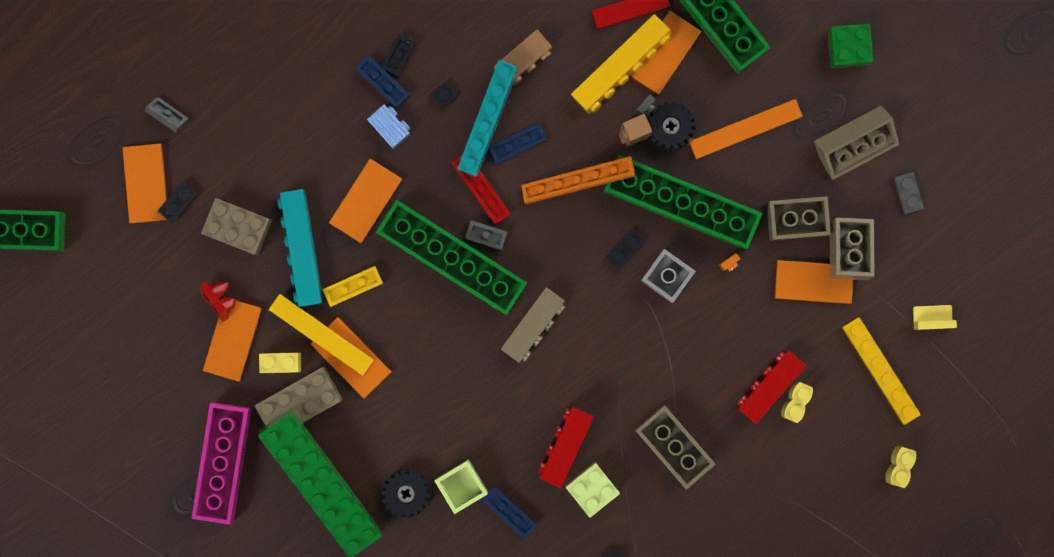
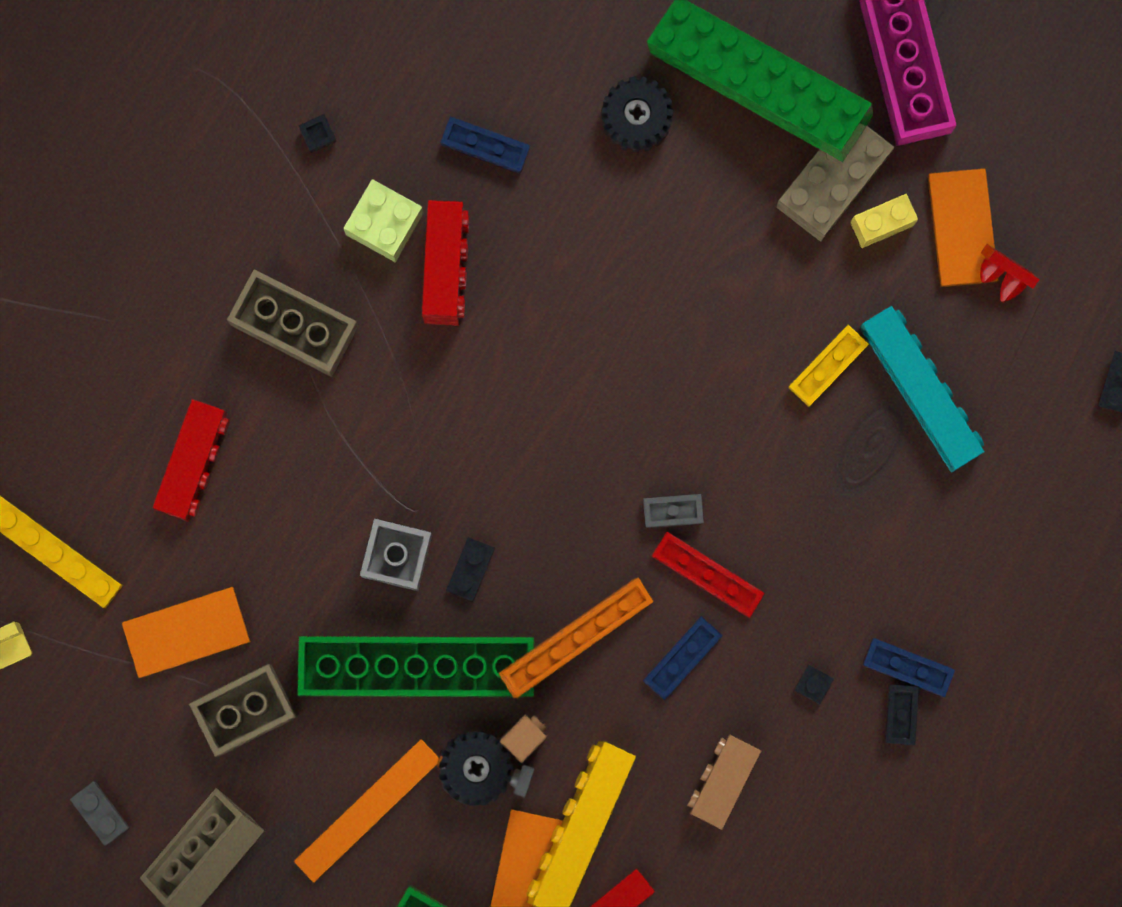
camera: 155 degrees right, 5 degrees down
(236, 227) = (1023, 382): dark tan brick -> none
(321, 334) = (843, 281): yellow tile -> none
(362, 384) = (789, 267): orange tile -> none
(365, 201) = (860, 491): orange tile -> none
(389, 126) = (872, 608): light blue brick -> none
(451, 257) = (708, 458): green brick -> none
(461, 486) = (565, 152): yellowish green piece -> none
(488, 118) = (738, 673): teal brick -> none
(533, 324) = (556, 413): dark tan brick -> none
(730, 263) = (315, 610): orange plate -> none
(795, 406) = (147, 444): light yellow brick -> none
(852, 249) = (151, 697): dark tan brick -> none

